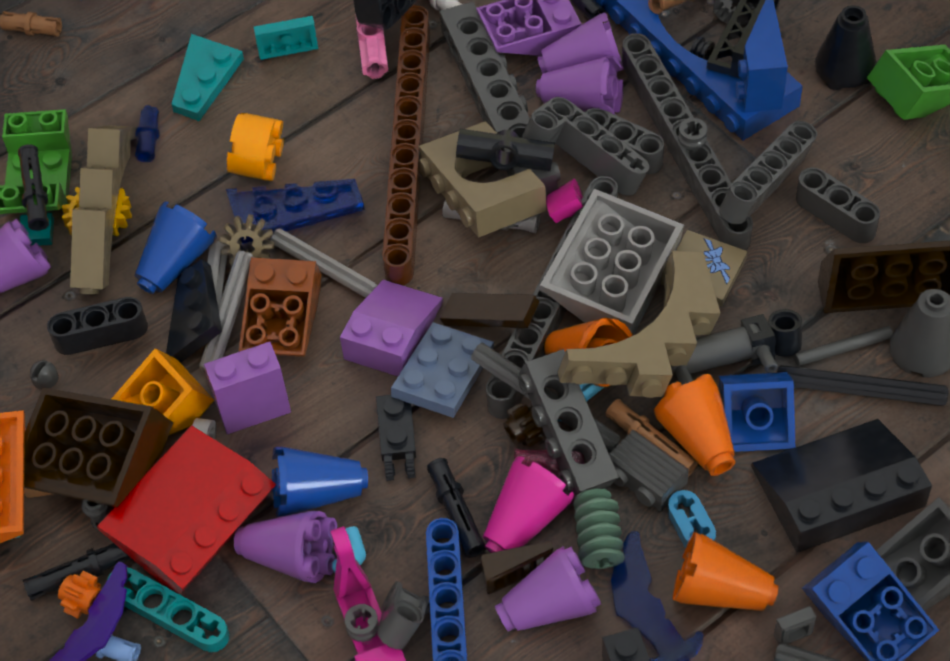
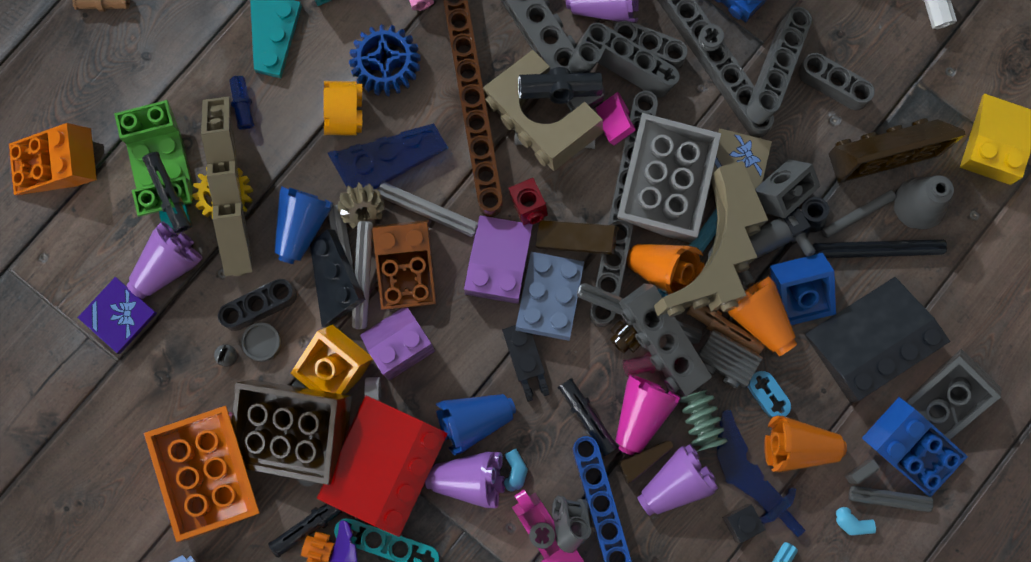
camera: 15 degrees left, 25 degrees up
(89, 368) = (261, 342): none -> dark grey piece
(318, 114) = (375, 59): none -> blue gear
(442, 268) = (526, 192): none -> dark red brick
(755, 295) = (787, 188): none -> dark grey brick

